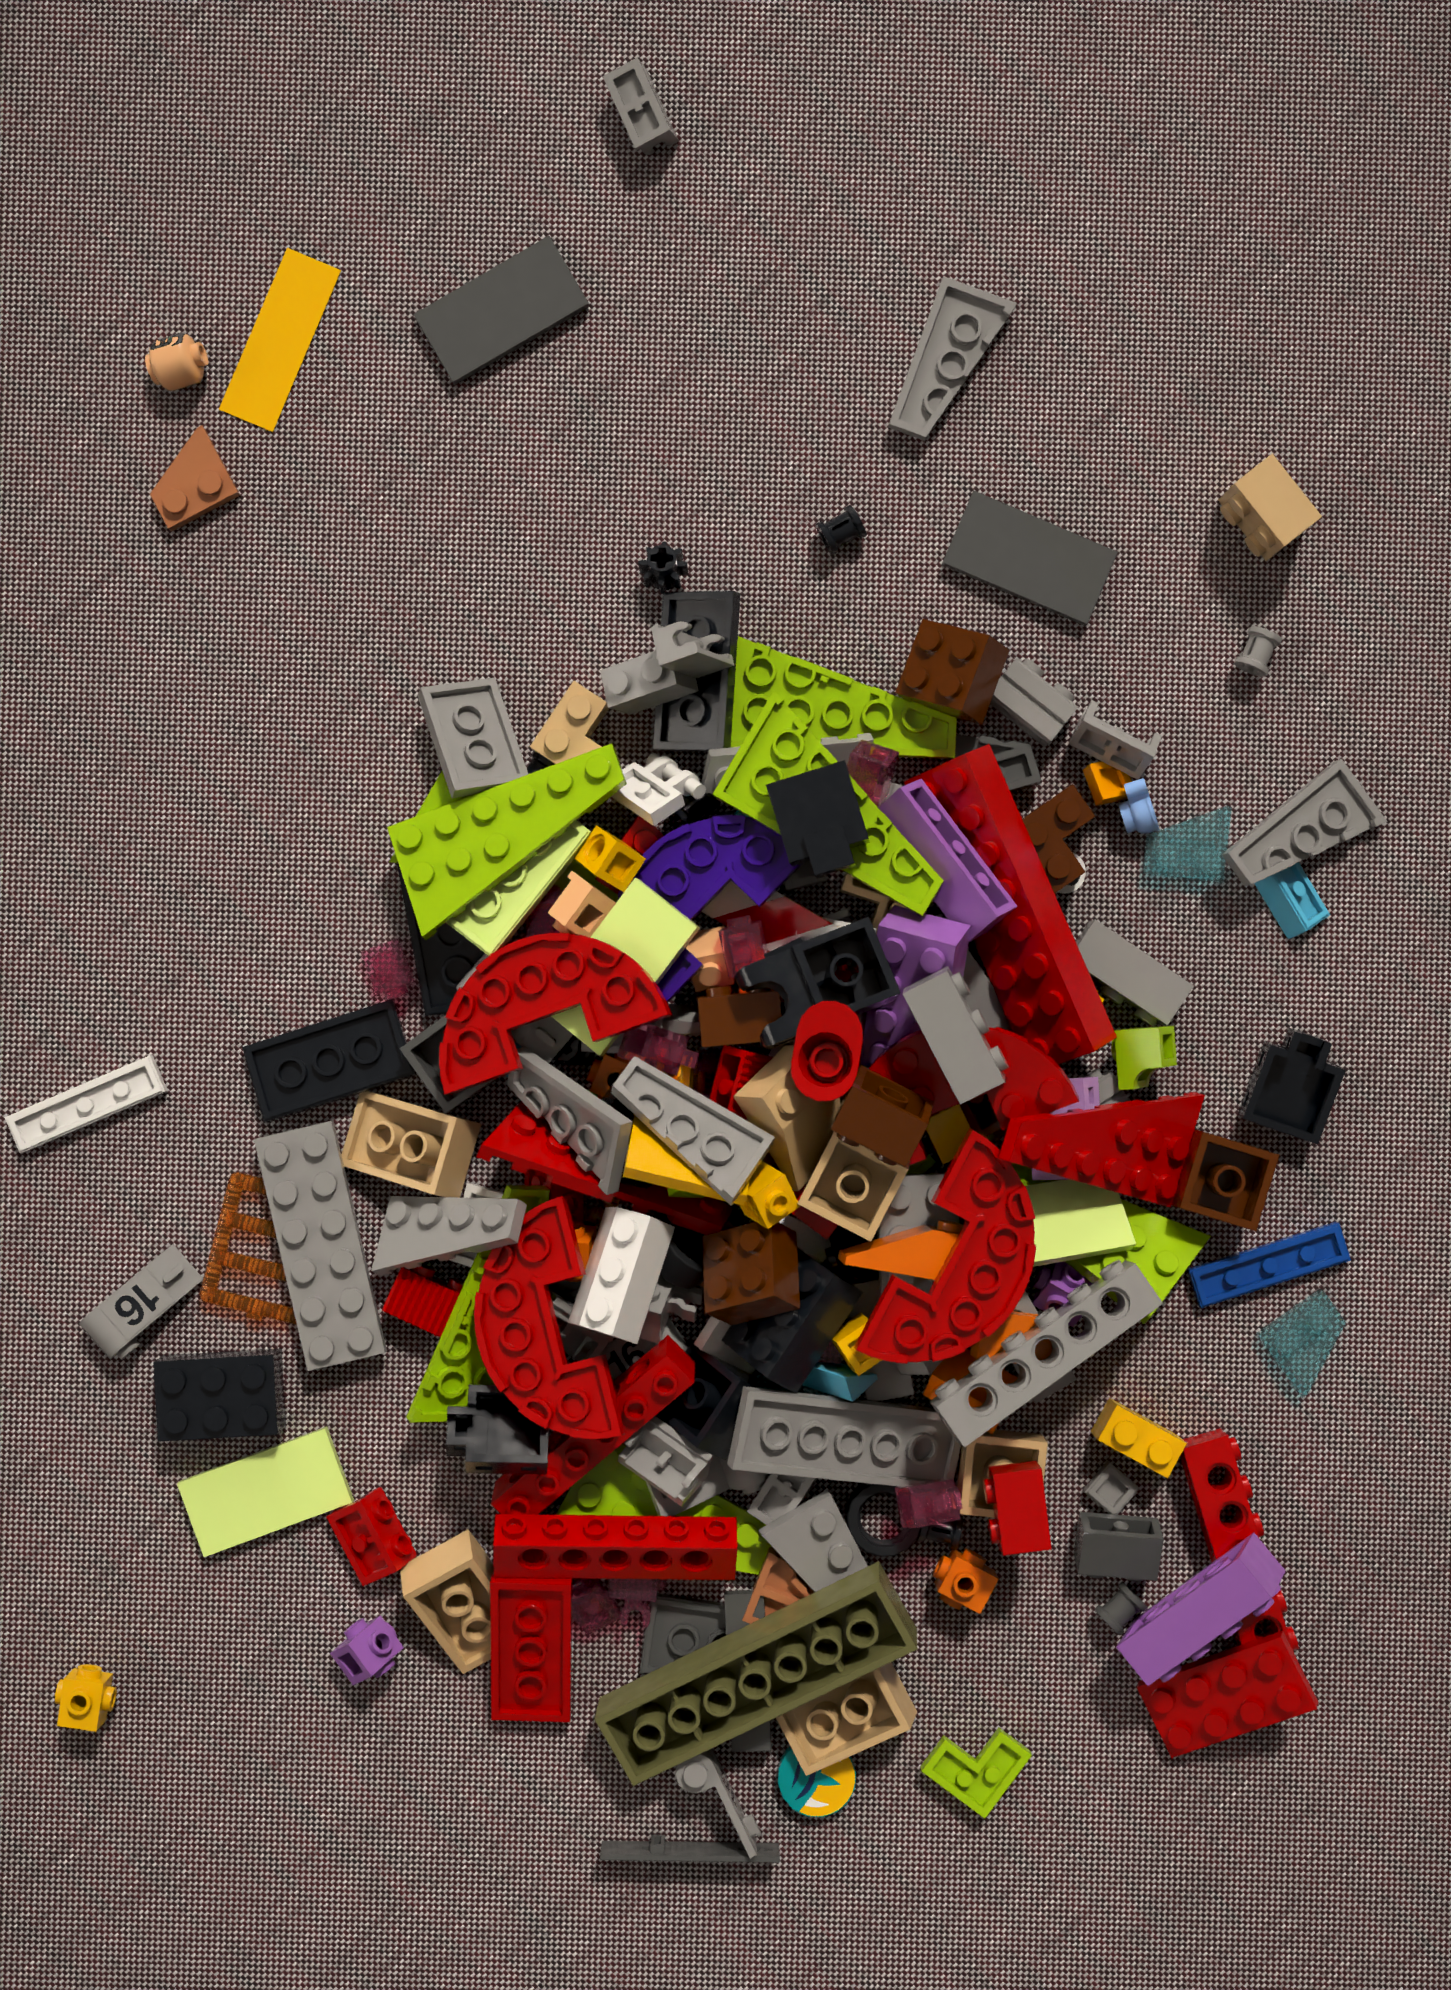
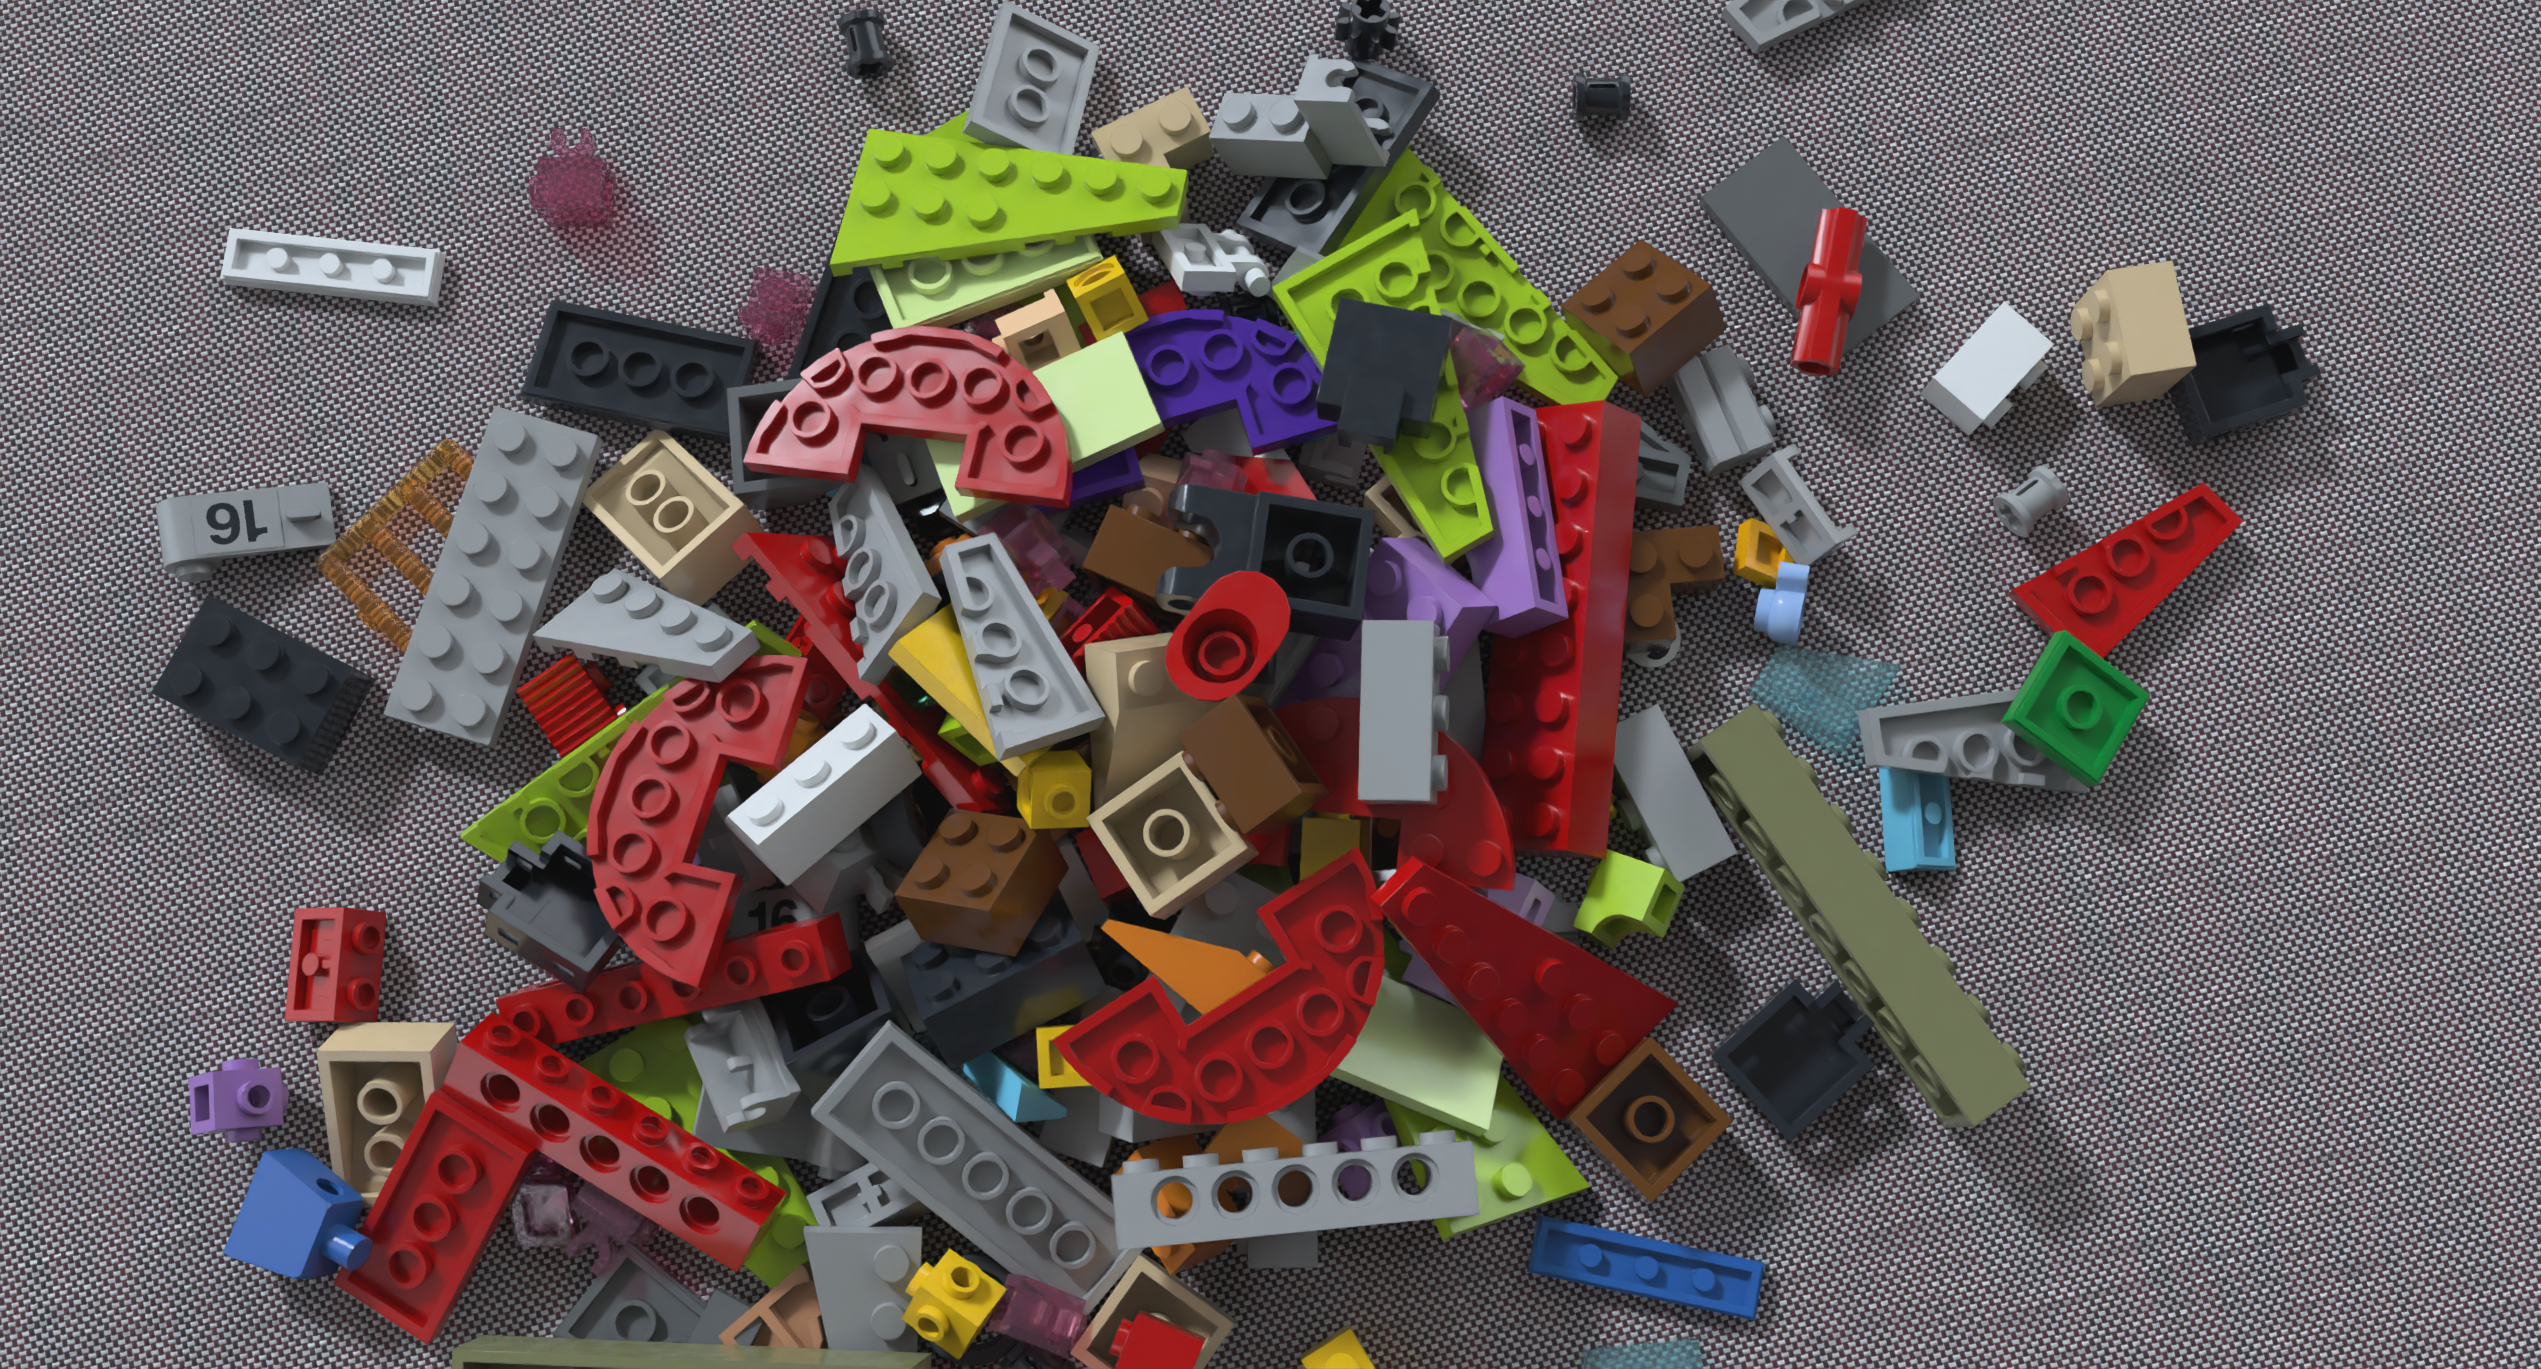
camera: 30 degrees right, 10 degrees down
(212, 965) = (573, 186): none -> clear pink brick
(265, 1491) = (244, 838): yellowish green tile -> none
(341, 762) = (865, 44): none -> black bush
(450, 1696) = (298, 1218): none -> torso
(874, 1525) = (951, 1302): none -> yellow brick
(1060, 586) = (1828, 292): none -> red piece
(1187, 579) = (1987, 369): none -> white brick
(1287, 987) = (1857, 920): none -> olive brick
(1338, 674) = (2128, 573): none -> red wing
(1350, 492) = (2242, 376): none -> black piece
(1354, 776) = (2075, 708): none -> green plate

